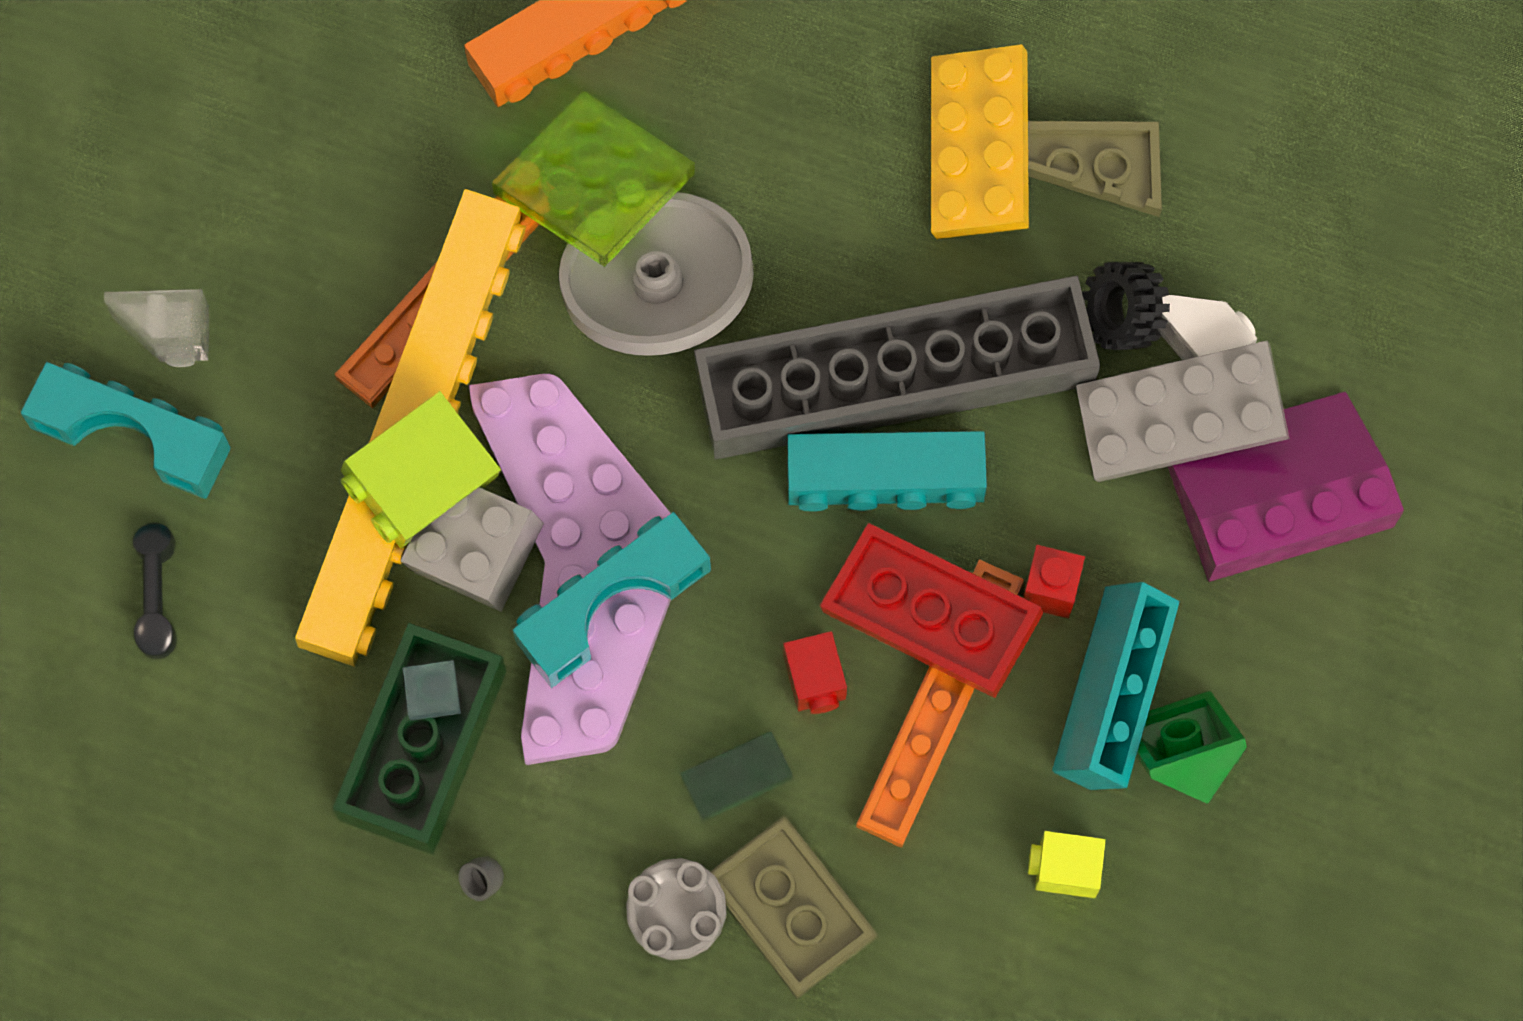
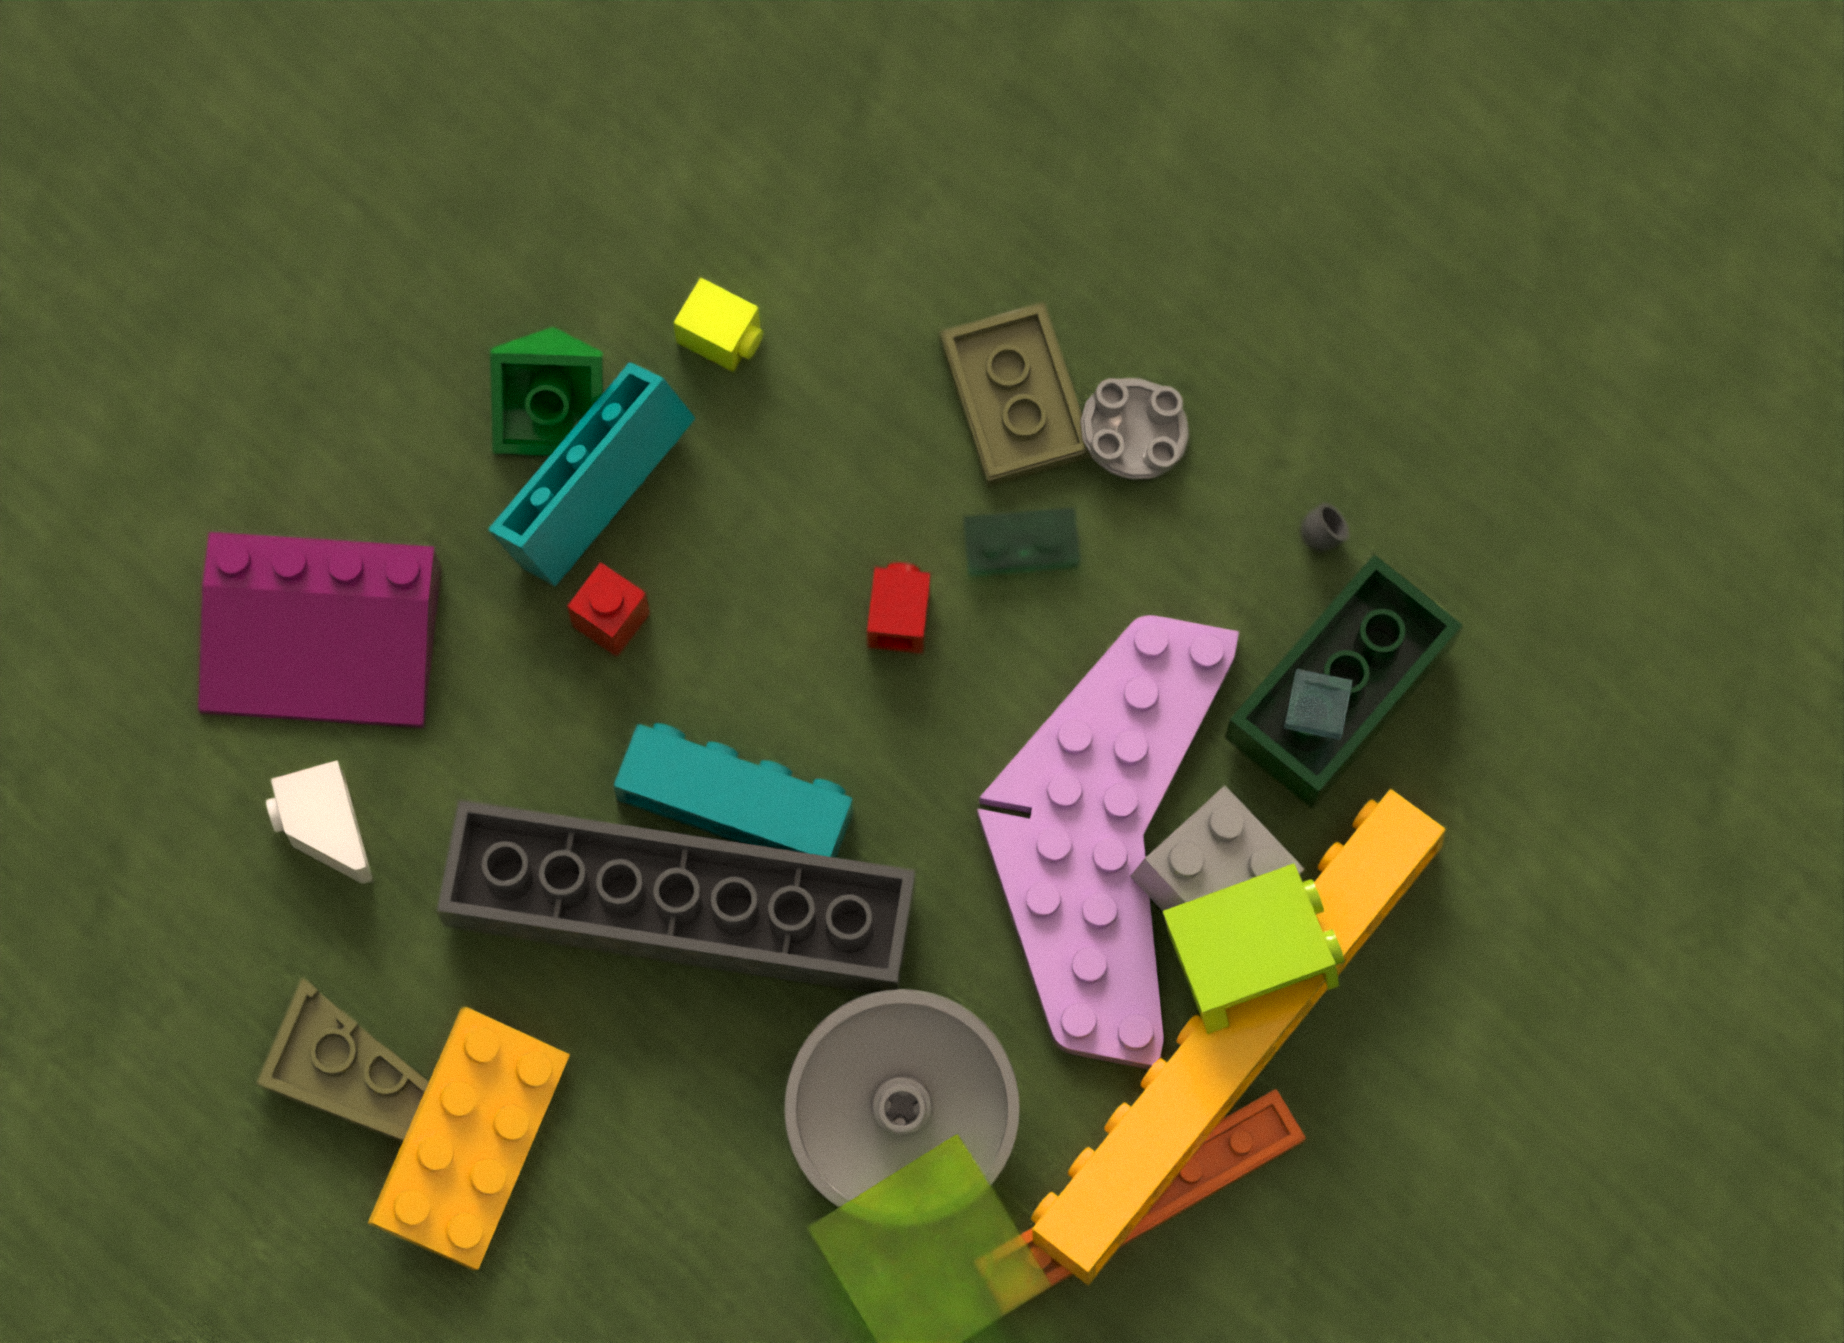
camera: 160 degrees left, 0 degrees up
(73, 406) = (1614, 1205): teal arch -> none
(153, 631) = (1570, 1012): black bar -> none
(166, 322) = (1484, 1265): clear slope -> none
(659, 560) = (1022, 769): teal arch -> none
(922, 742) = (776, 541): orange tile -> none
(931, 610) = (750, 623): red plate -> none
(1144, 305) = (375, 870): black tyre -> none
(1182, 411) = (387, 729): light grey plate -> none

